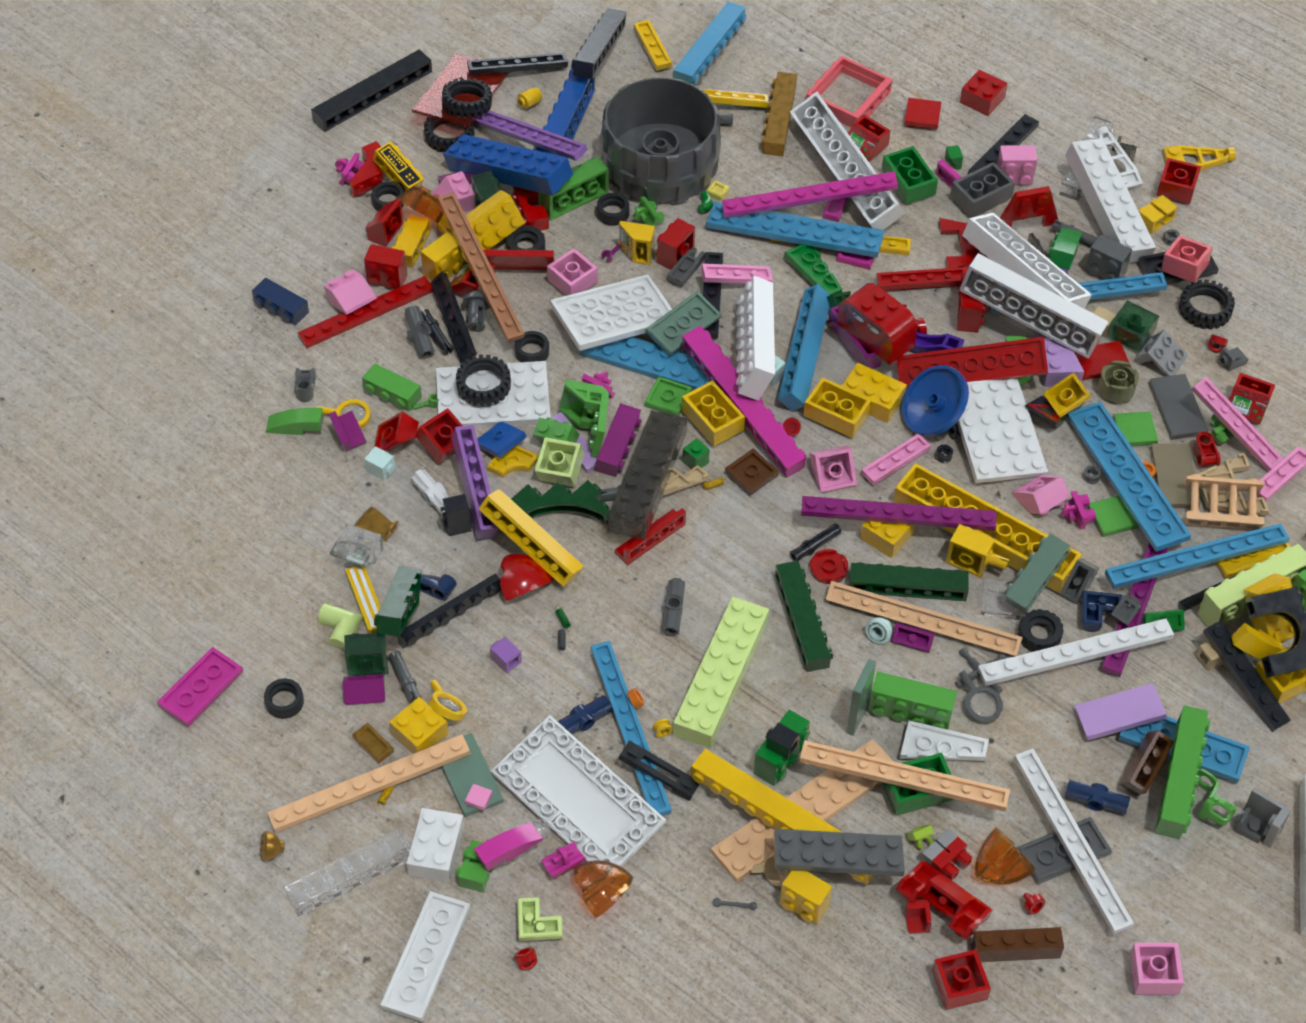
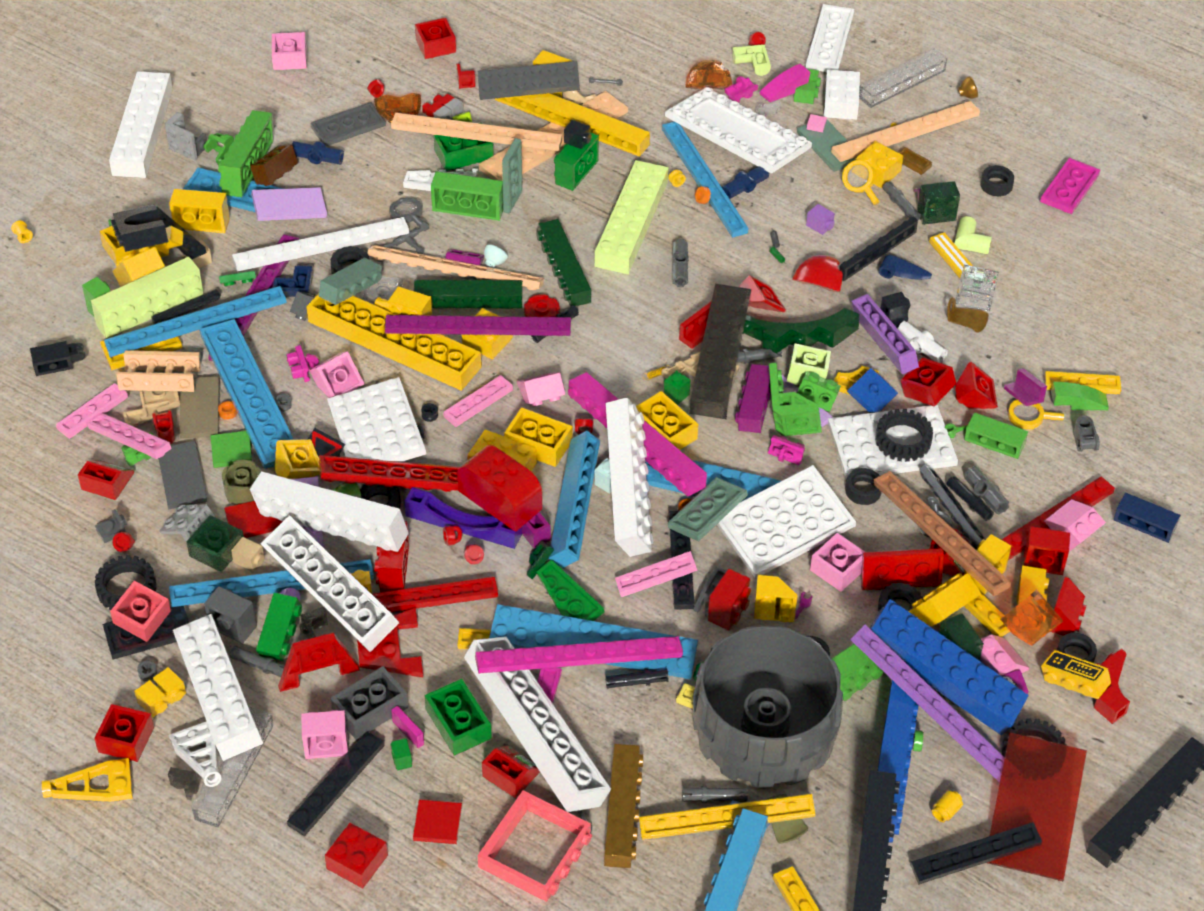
camera: 175 degrees right, 5 degrees down
(285, 439) = (1105, 383): none -> yellow plate
(347, 168) = (1136, 682): dark pink hips -> none
(379, 463) = (984, 360): light aqua brick -> none
(399, 602) = (922, 225): wedge -> none
(466, 108) = (1033, 747): black tyre -> none
(531, 537) = (820, 288): yellow brick -> none
(594, 554) = (762, 295): none -> red slope
(633, 754) = (697, 148): black container -> none
(667, 396) = (713, 450): bright green tile -> none
(751, 471) = (621, 380): reddish brown plate -> none
(935, 400) = (438, 435): blue dish -> none
(947, 896) = (437, 79): red bracket -> none
(1018, 944) = (391, 61): reddish brown brick -> none
(1074, 842) = (343, 120): white plate -> none
(1112, 516) = (272, 365): bright green tile -> none
(1126, 609) = (268, 272): dark grey bracket -> none
(1224, 700) = (200, 210): none -> yellow brick

